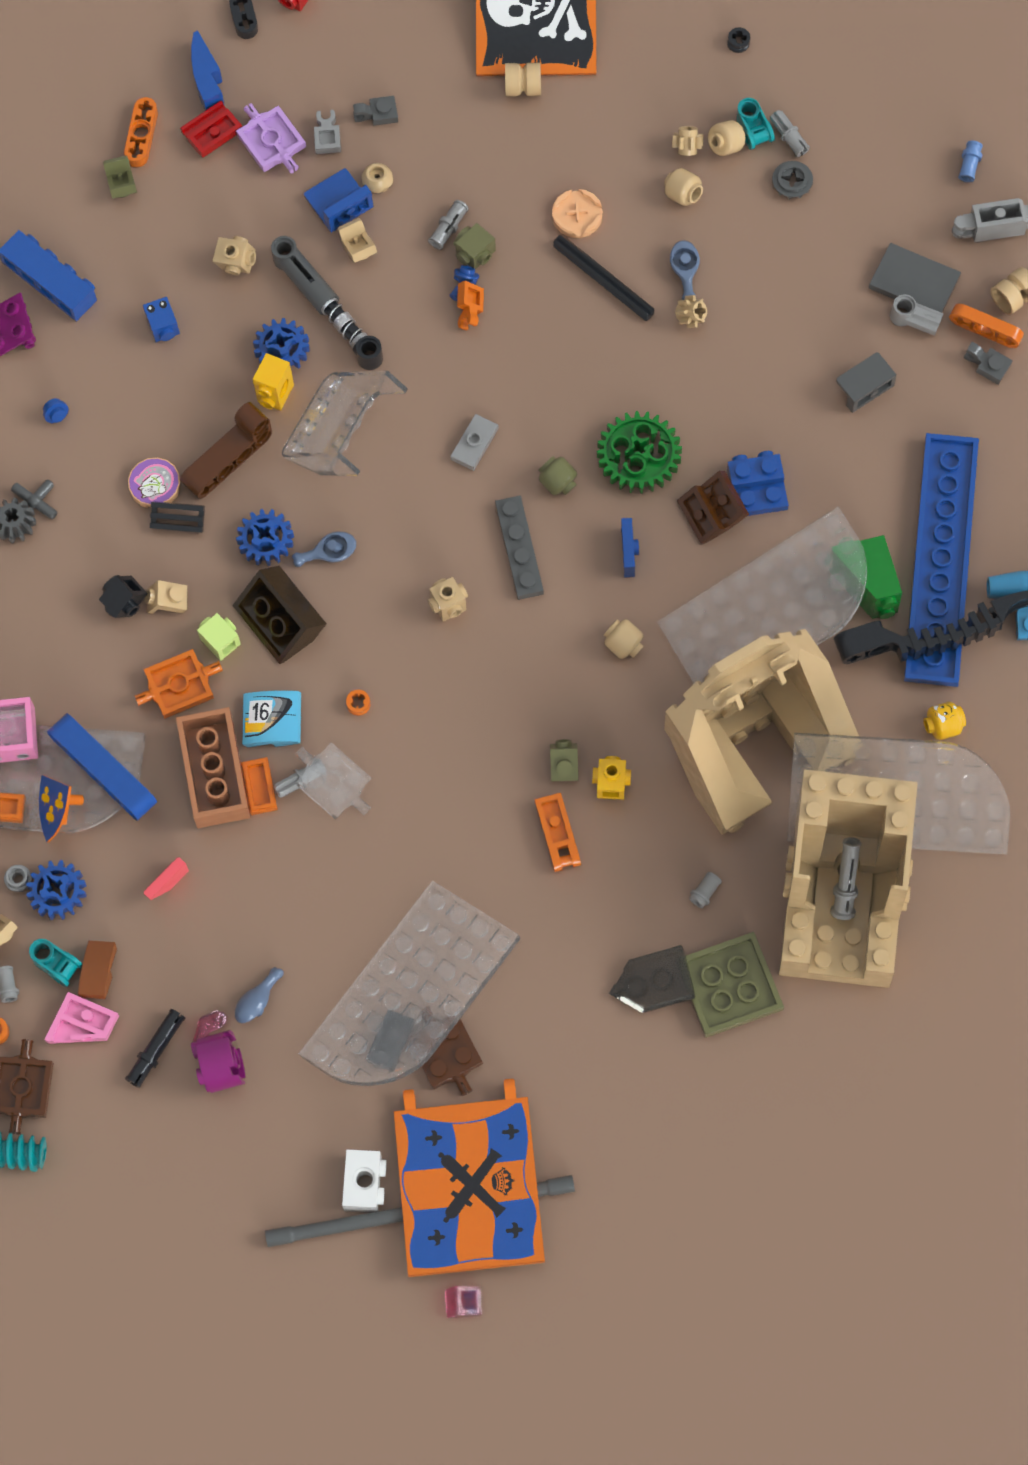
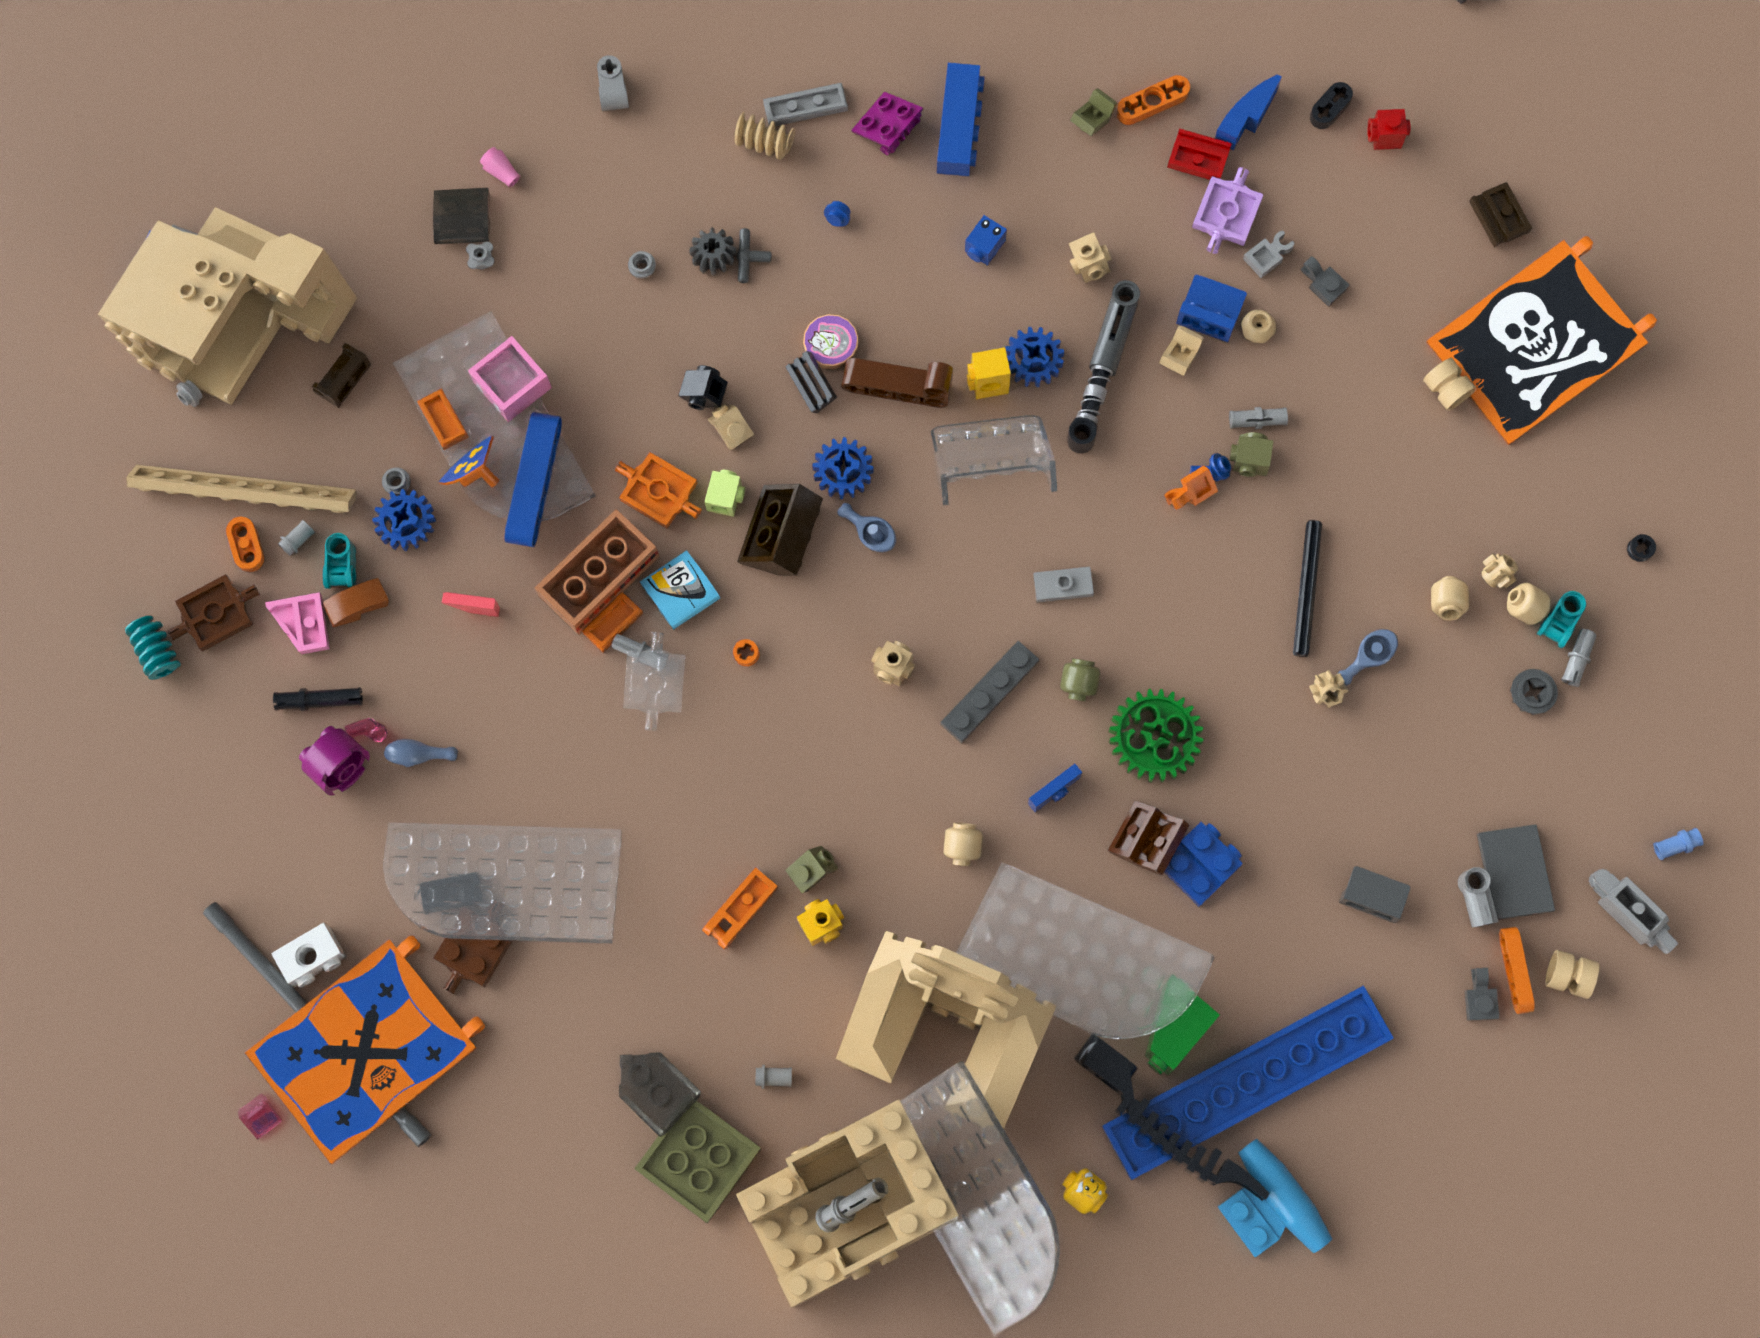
camera: 55 degrees right, 5 degrees up
(577, 213) = (1354, 522): light nougat tile -> none

